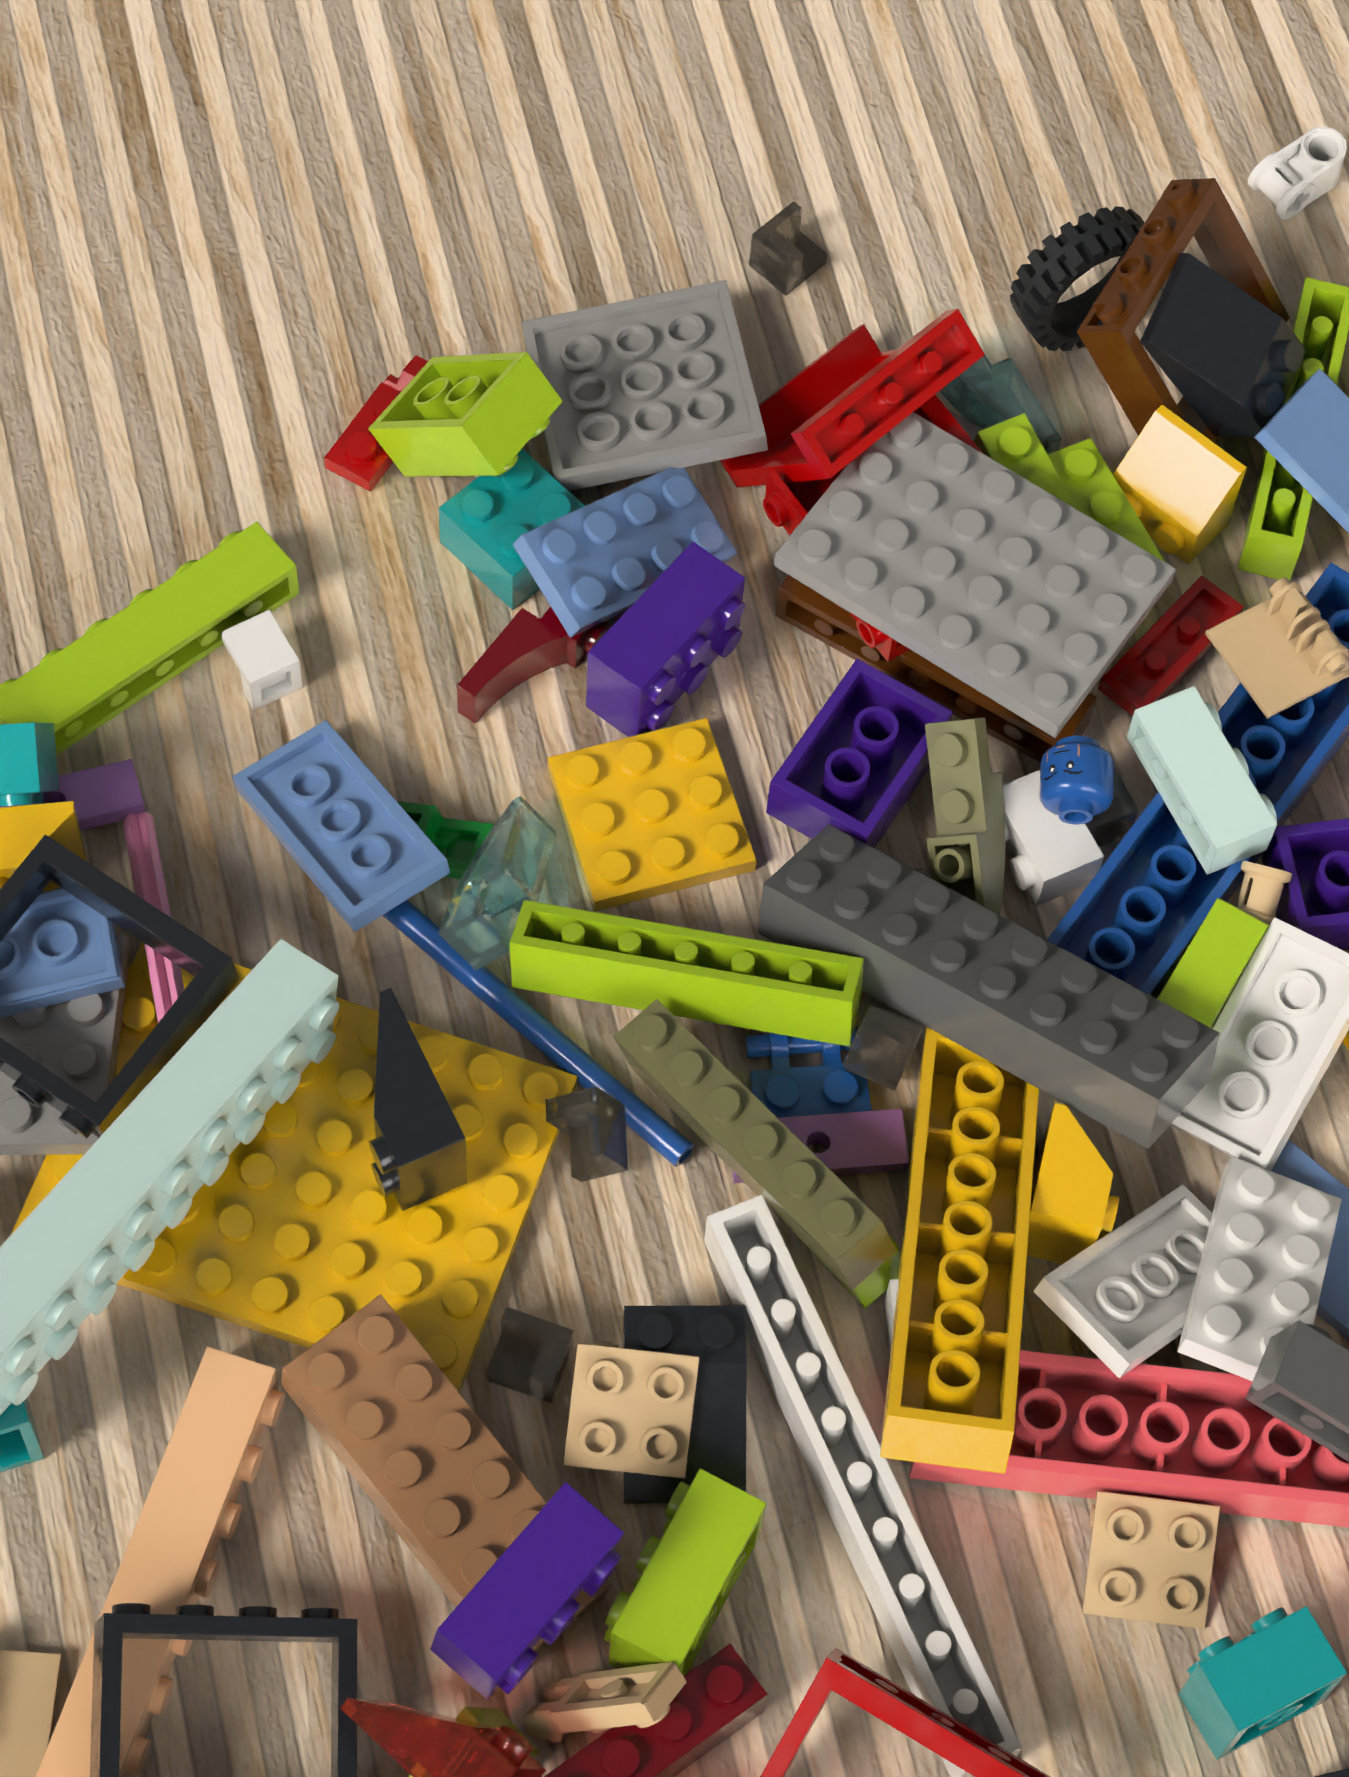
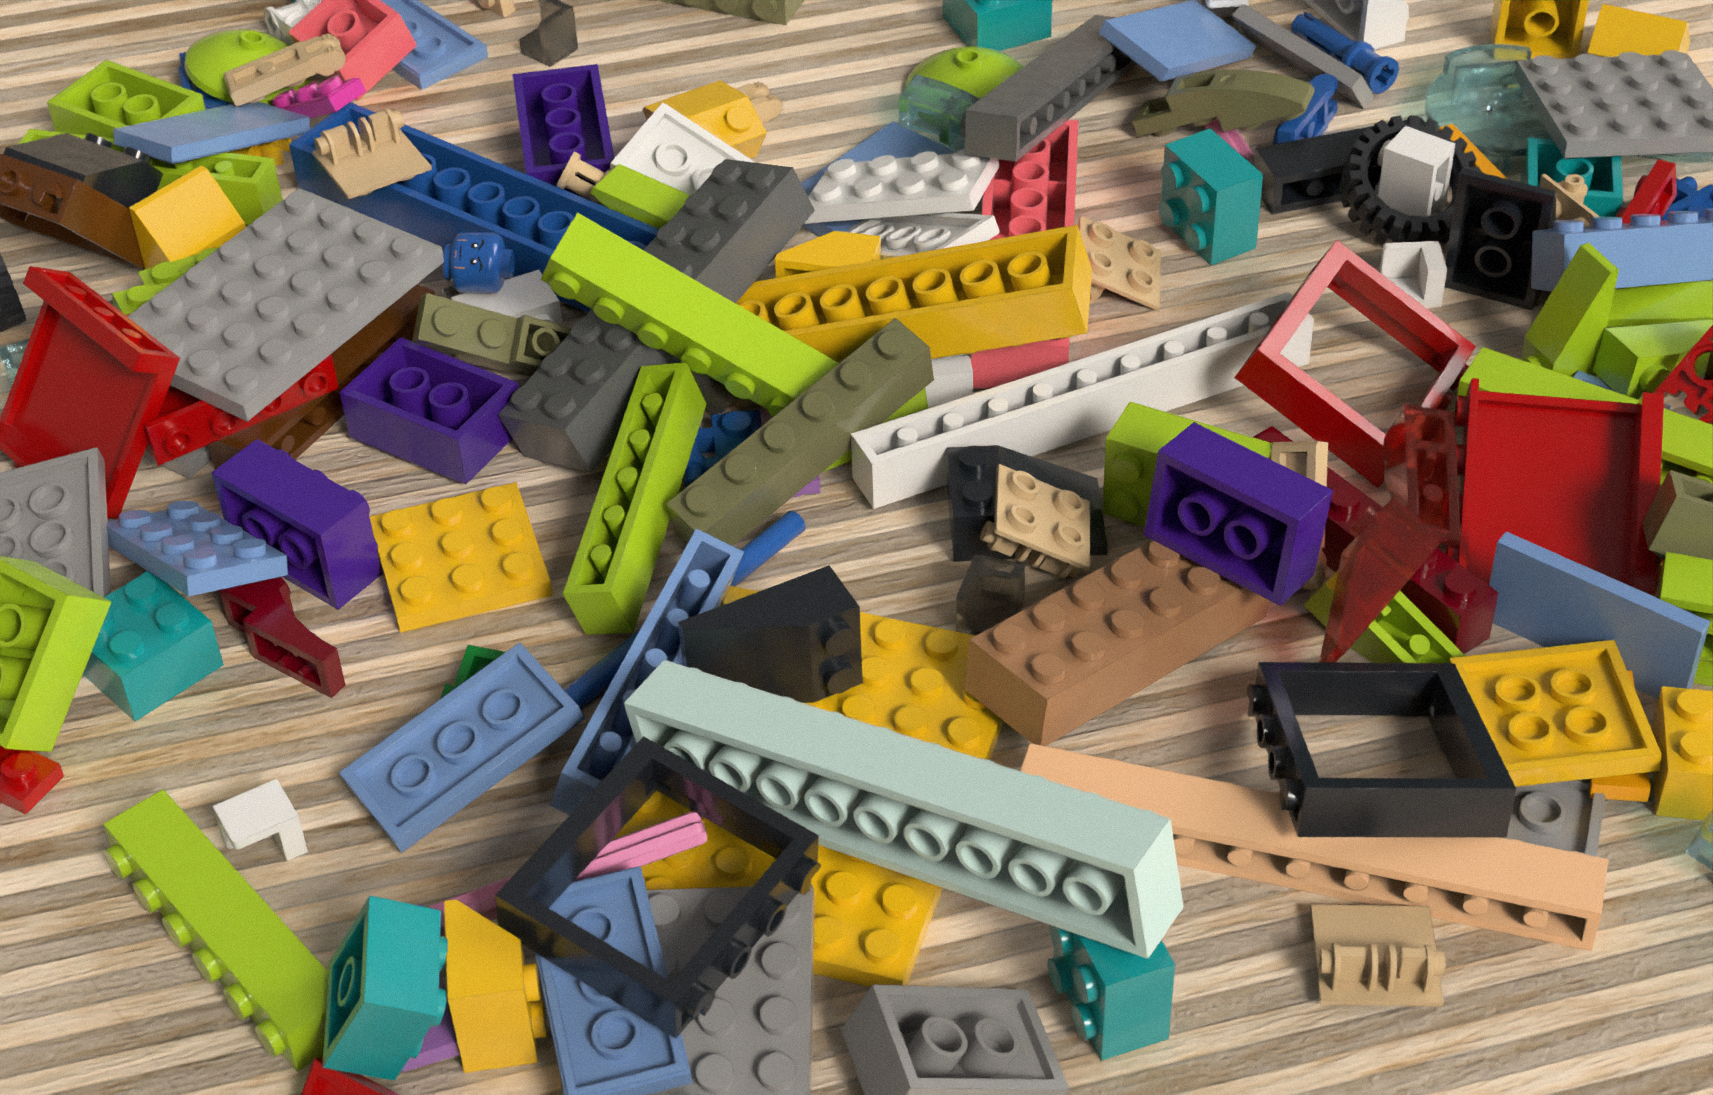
camera: 85 degrees left, 20 degrees down
(426, 995) = (693, 588): none -> medium blue brick
(495, 884) = (540, 628): clear light blue slope -> none
(595, 1131) = (783, 557): clear smoke panel -> none
(898, 996) = (682, 317): none -> lime brick
(1202, 779) = (489, 191): light aqua brick -> none

